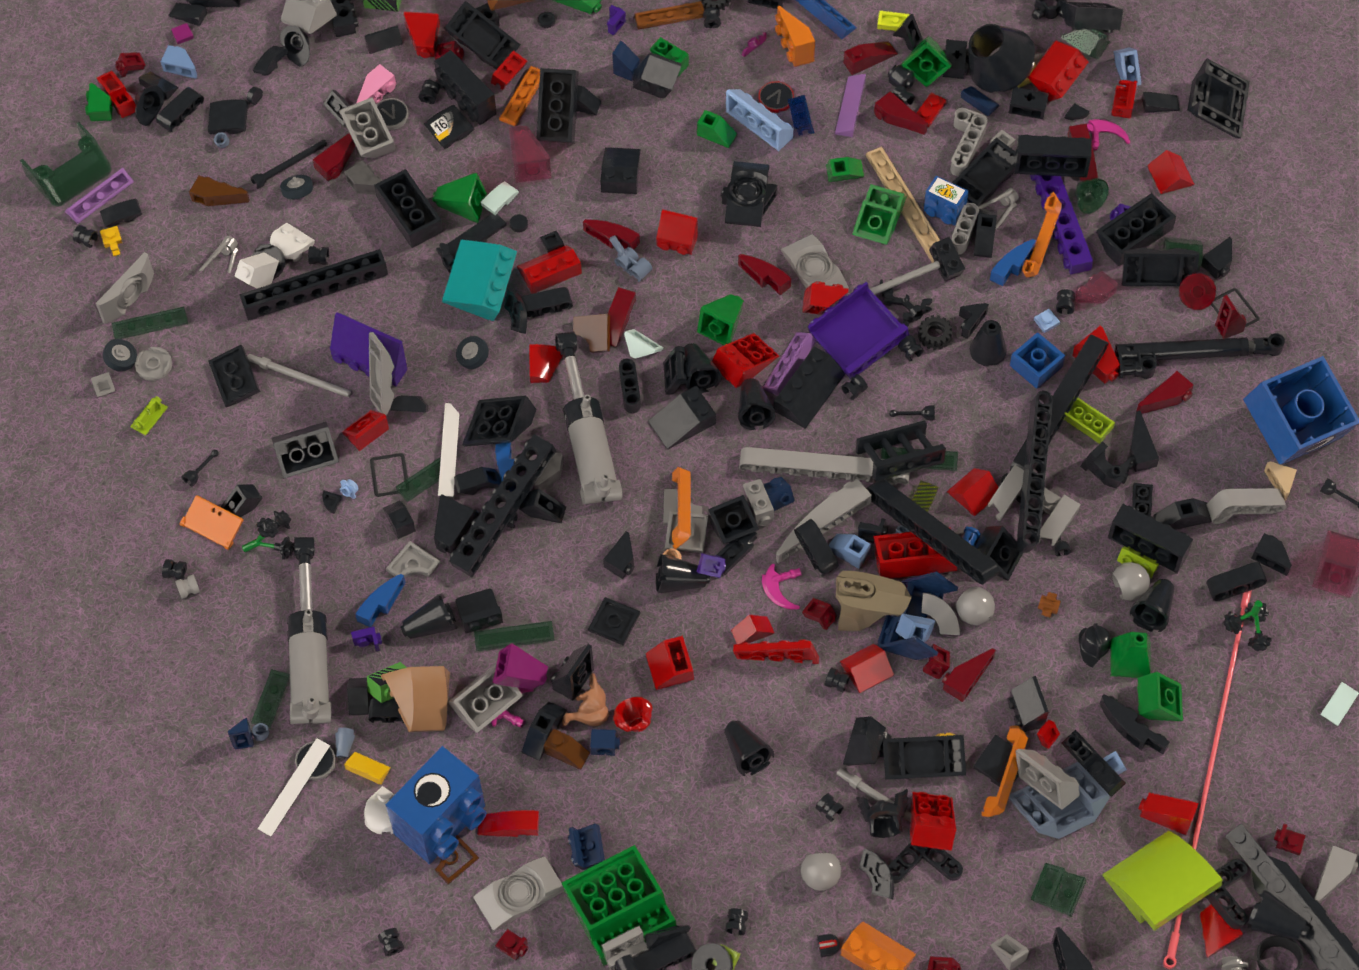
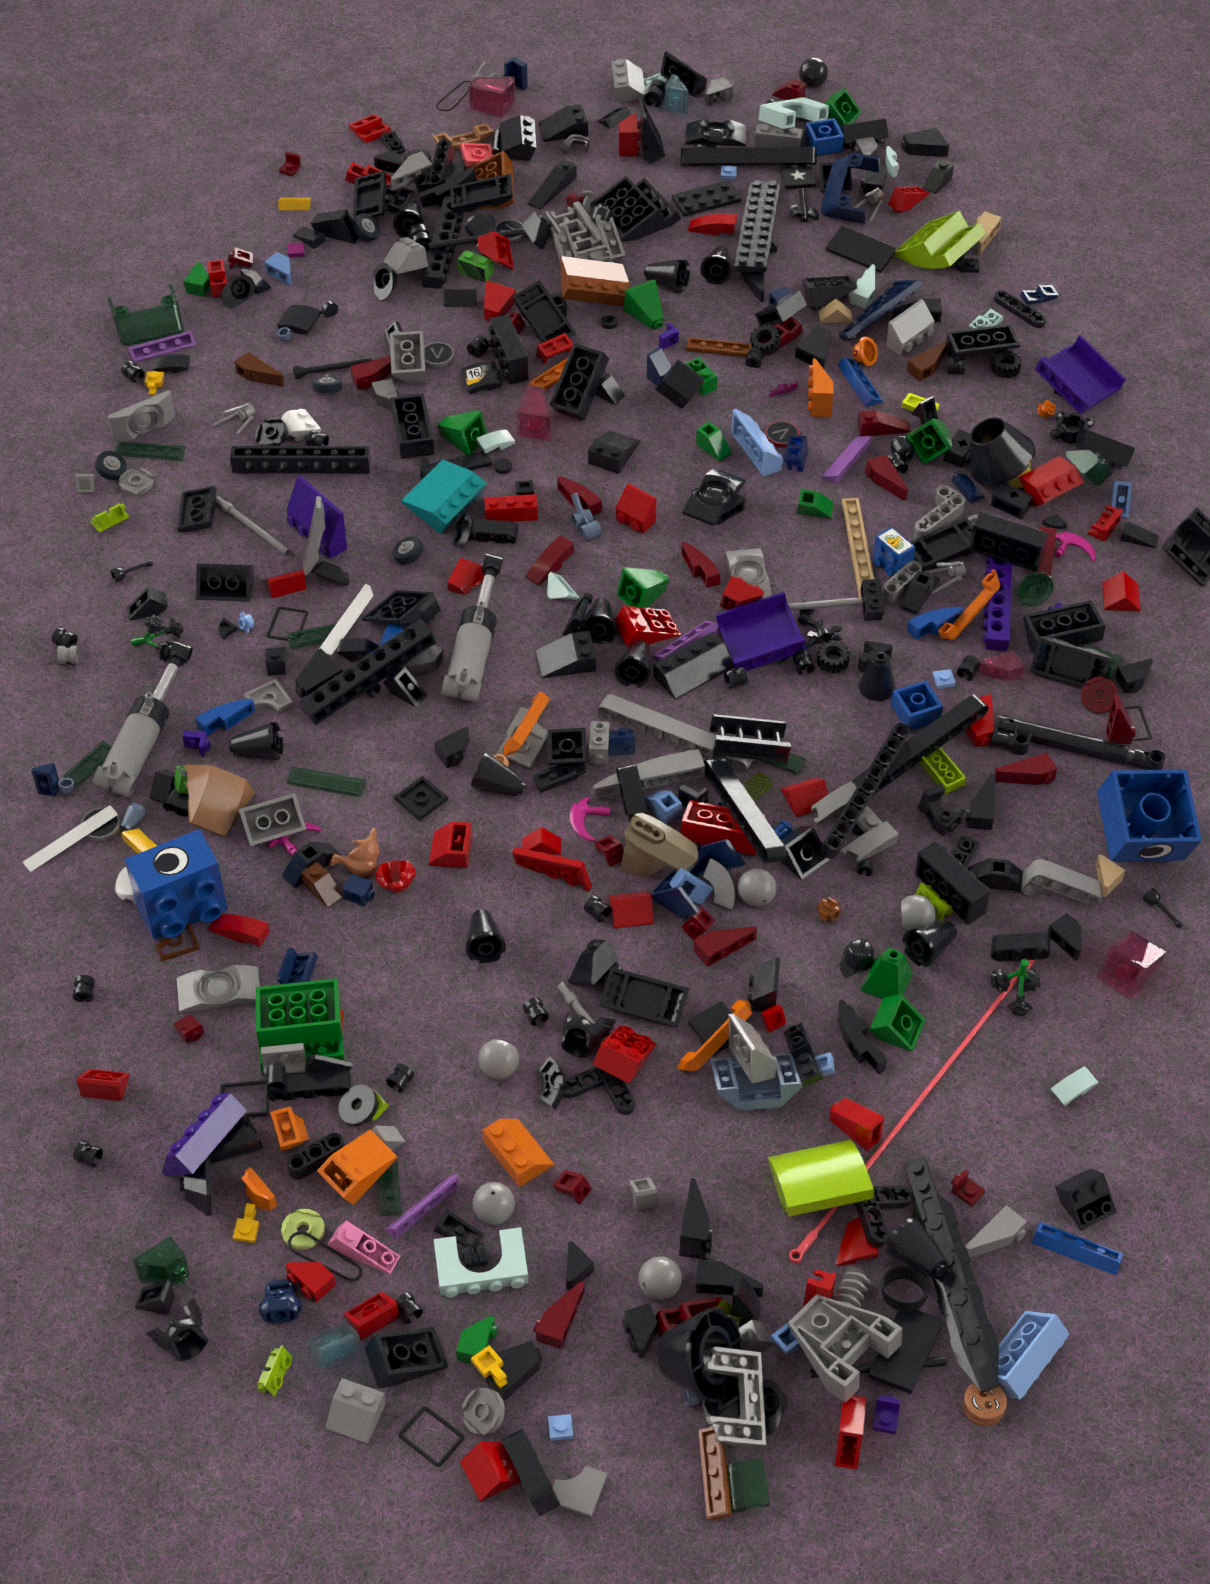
camera: 20 degrees right, 10 degrees down
(179, 109) = (262, 301): black beam -> none
(217, 526) = (116, 616): orange door -> none
(257, 270) = (254, 430): white slope -> none
(268, 61) = (355, 287): black slope -> none
(377, 84) = (437, 326): bright pink slope -> none
(479, 610) = (305, 752): black bracket -> none
(519, 669) = (311, 804): magenta slope -> none
(574, 672) = (359, 821): black slope -> none
(594, 330) = (523, 564): tile -> none
(629, 378) = (532, 616): black beam -> none
(711, 565) = (527, 775): dark purple bracket -> none
(828, 945) = (474, 1127): black tile -> none
(879, 214) = (828, 548): green slope -> none
(927, 412) = (793, 719): black hinge -> none
(931, 108) = (919, 481): red plate -> none
(1049, 886) = (712, 1148): clear green slope -> none

